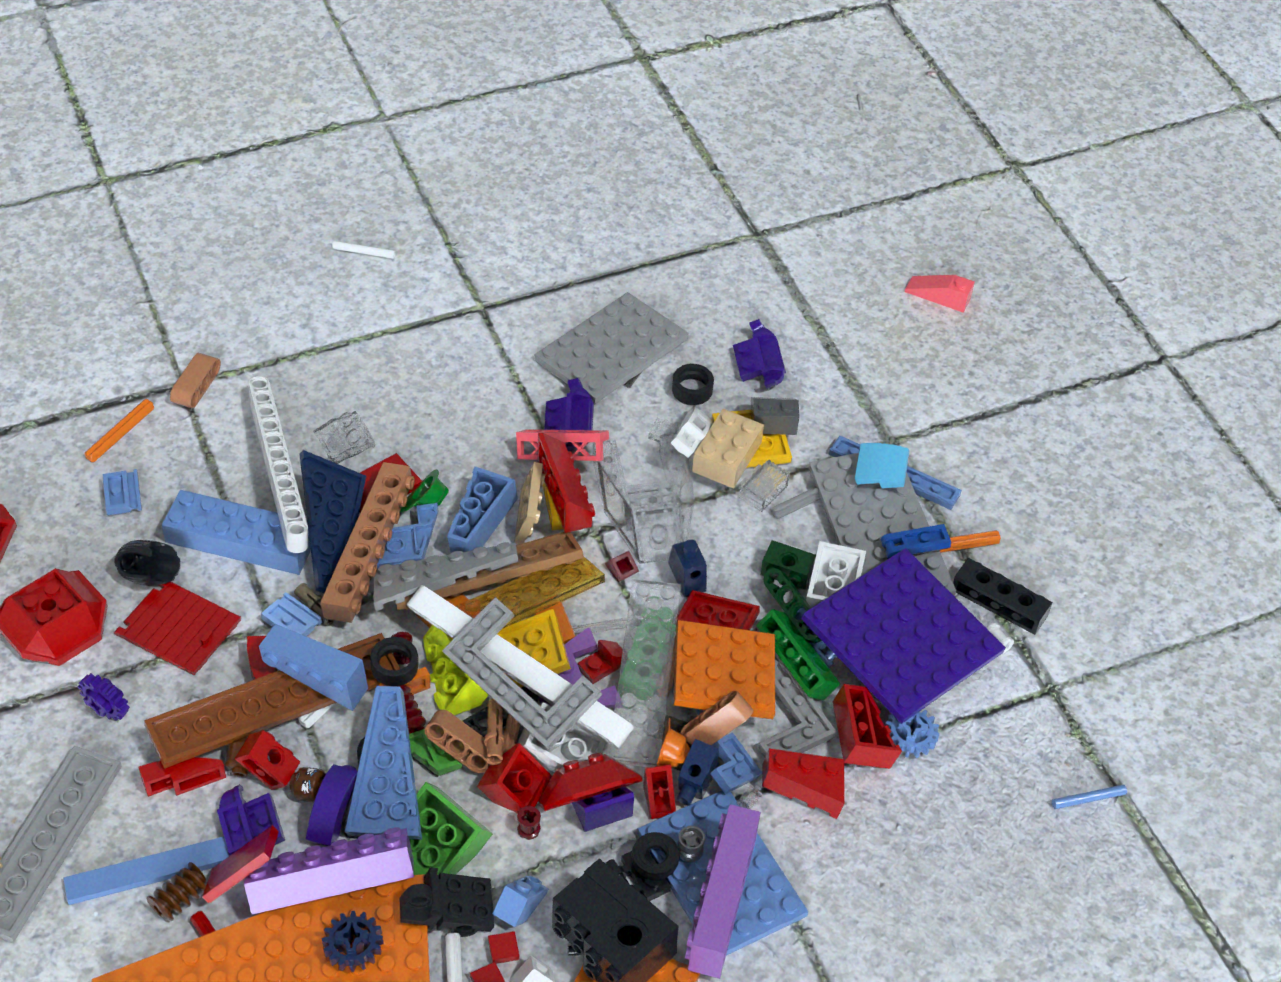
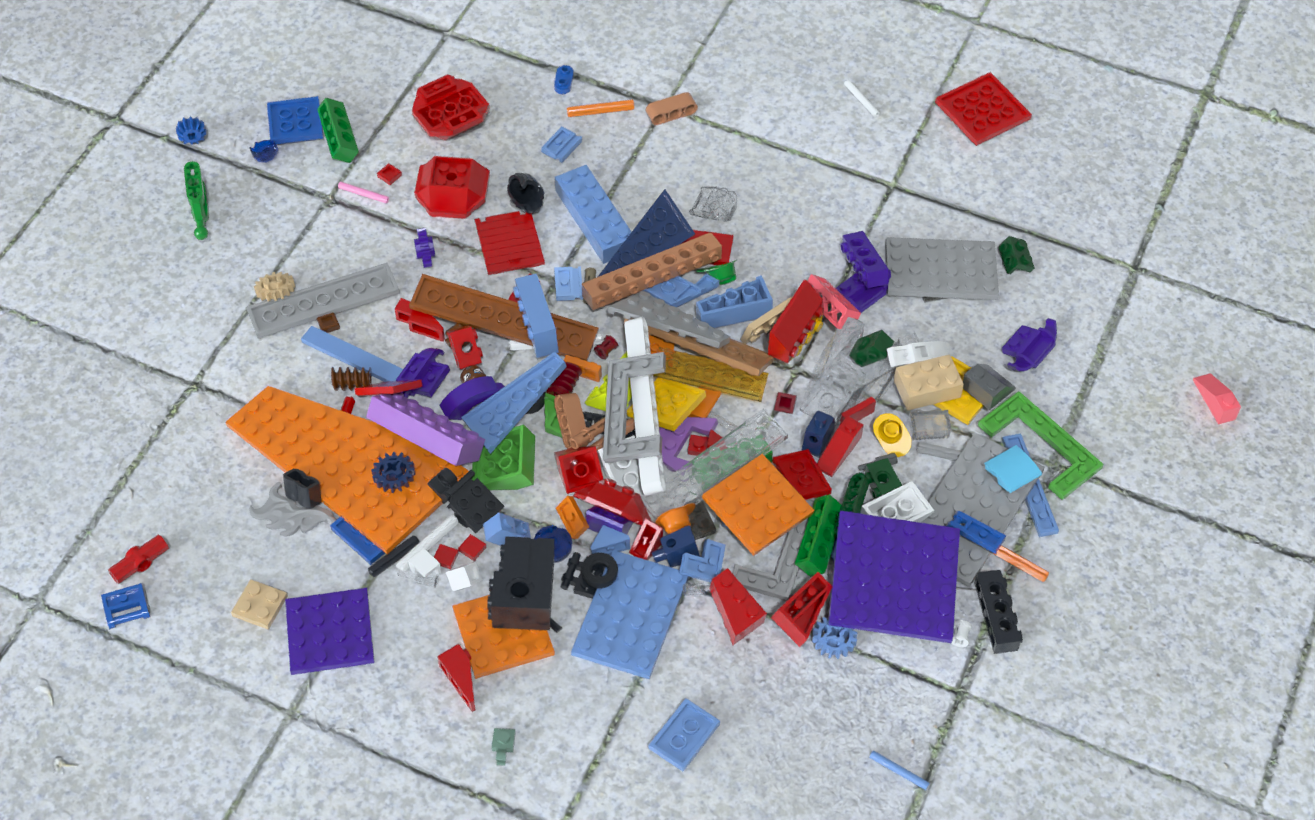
camera: 50 degrees right, 5 degrees up
(42, 426) = (563, 79): none -> blue plate
(77, 860) = (328, 323): none -> reddish brown tile
(278, 465) = (651, 188): white beam -> none
(394, 645) = (581, 359): black tyre -> none
(482, 186) = (983, 108): none -> red plate
(526, 824) = (556, 493): dark red bush -> none
(547, 384) = (865, 259): none -> dark purple brick
(565, 832) = (572, 517): none -> orange plate
(567, 867) = (562, 543): none -> clear blue tile
(625, 823) = (610, 540): none -> medium blue slope
(646, 456) = (871, 348): none -> dark green brick
(657, 291) = (1015, 255): none -> dark green bracket
(691, 396) = (963, 318): black tyre -> none
(691, 843) = (624, 580): flat silver wheel -> none
(696, 519) = (860, 410): none -> red tile
(718, 719) = (716, 527): nougat beam -> none
(719, 569) = (840, 445): none -> red slope
(722, 891) = (606, 617): medium lavender brick -> none
(749, 518) = (892, 434): none -> yellow piece
(761, 550) = (891, 457): none -> dark grey axle
(900, 934) = (684, 734): none -> medium blue plate
(914, 419) = (1084, 462): none -> bright green plate

